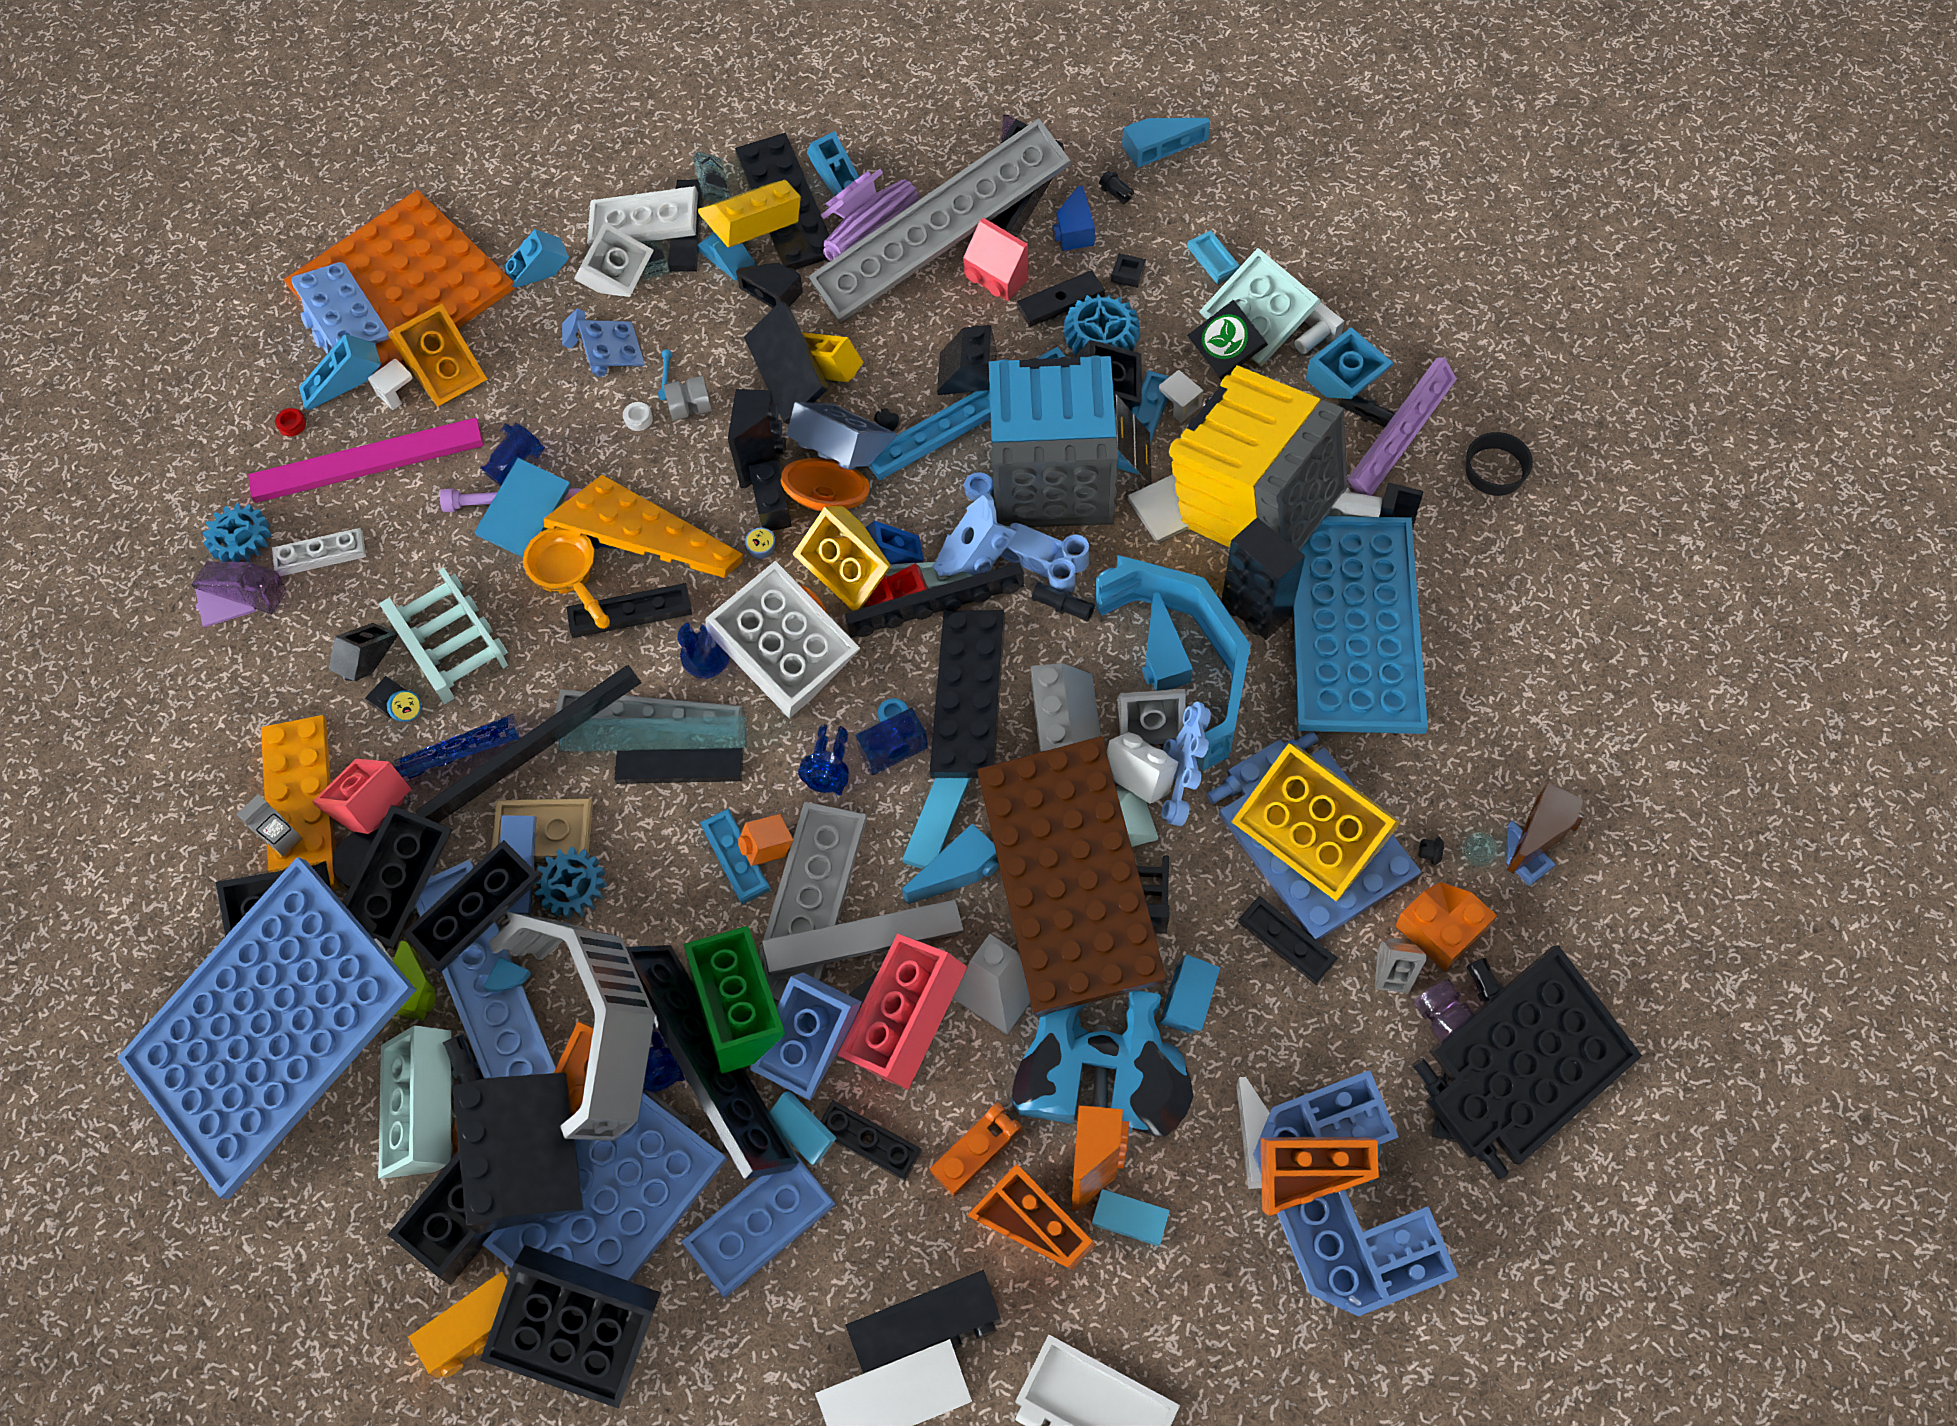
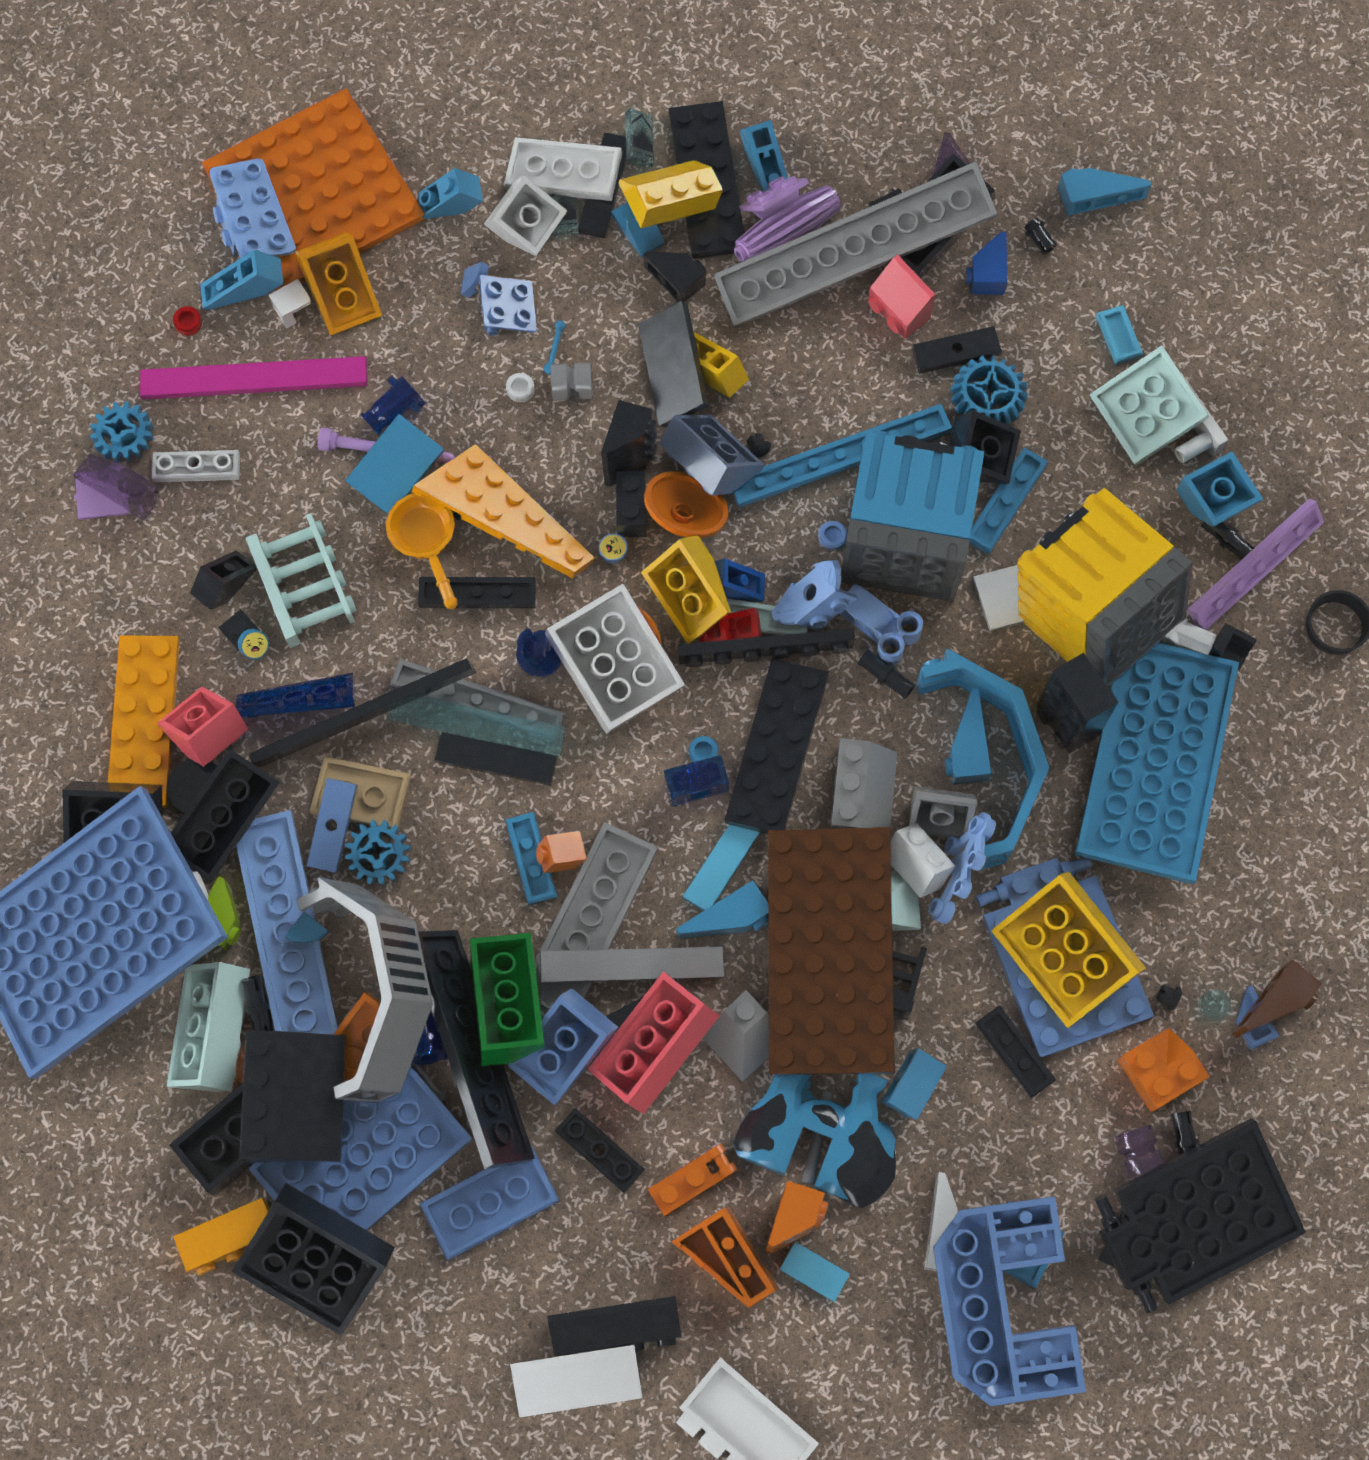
camera: 10 degrees right, 10 degrees up
(269, 825) = (116, 740): light grey leg -> none
(472, 906) = (288, 864): black slope -> none
(801, 1128) = (543, 1127): medium azure tile -> none
(824, 769) = (630, 796): clear blue piece -> none
(966, 361) = (850, 403): black slope -> none
(1128, 270) = (1030, 332): black plate -> none
(1133, 440) = (989, 532): black sticker -> none
(1183, 393) = (1050, 482): white panel -> none
(1227, 339) = (1108, 433): slope -> none
(1310, 1167) = (982, 1273): orange wedge -> none
(1398, 965) = (1108, 1100): light grey slope -> none

